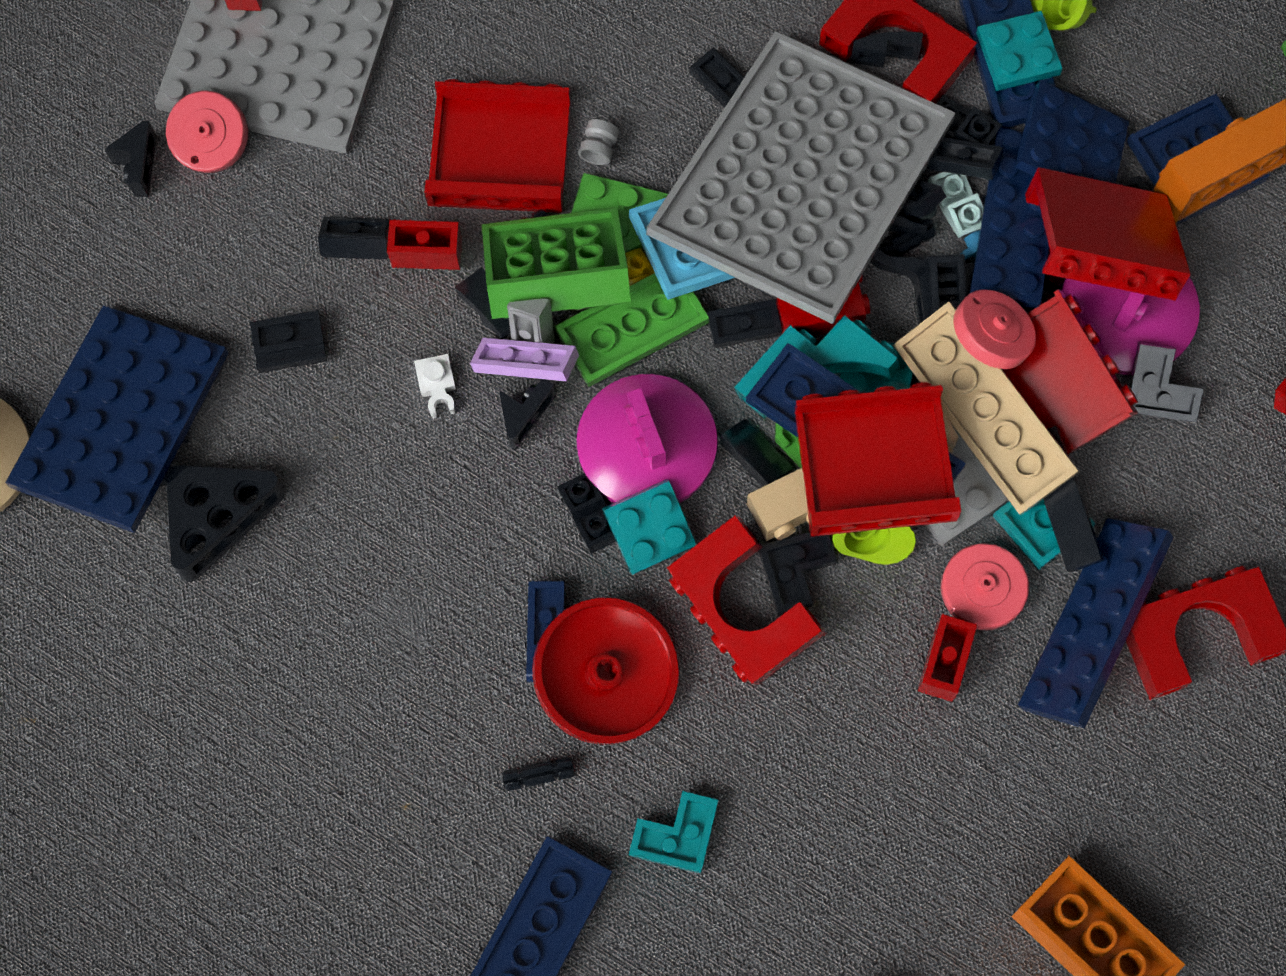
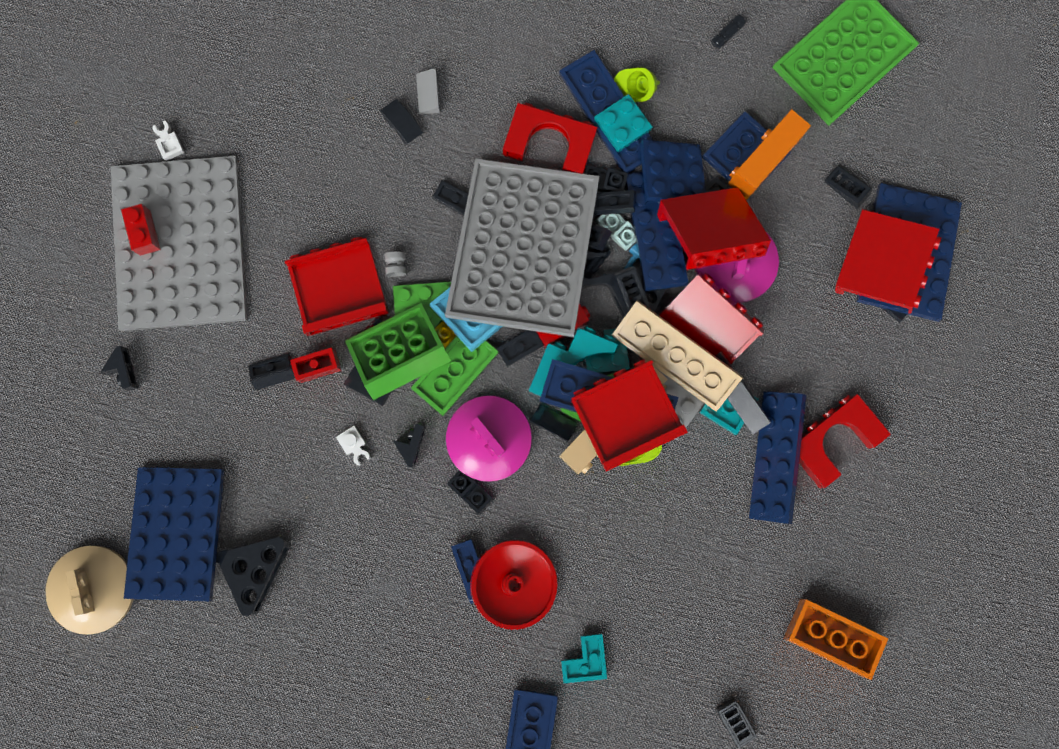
camera: 25 degrees left, 10 degrees up
(206, 131) = (157, 338): coral wheel -> none
(288, 341) = (257, 450): black plate -> none
(524, 359) = (400, 415): lavender plate -> none
(531, 321) = (398, 395): light grey slope -> none
(538, 773) = (496, 654): black axle -> none
(649, 526) = (508, 490): teal plate -> none
(701, 577) = (593, 541): red arch -> none
(787, 562) = (593, 486): black plate -> none
(873, 48) = (538, 149): black slope -> none
(947, 658) = (702, 508): red brick -> none
(985, 586) = (709, 457): coral wheel -> none
(994, 329) = (668, 309): coral wheel -> none
(1155, 392) = (767, 307): plate -> none

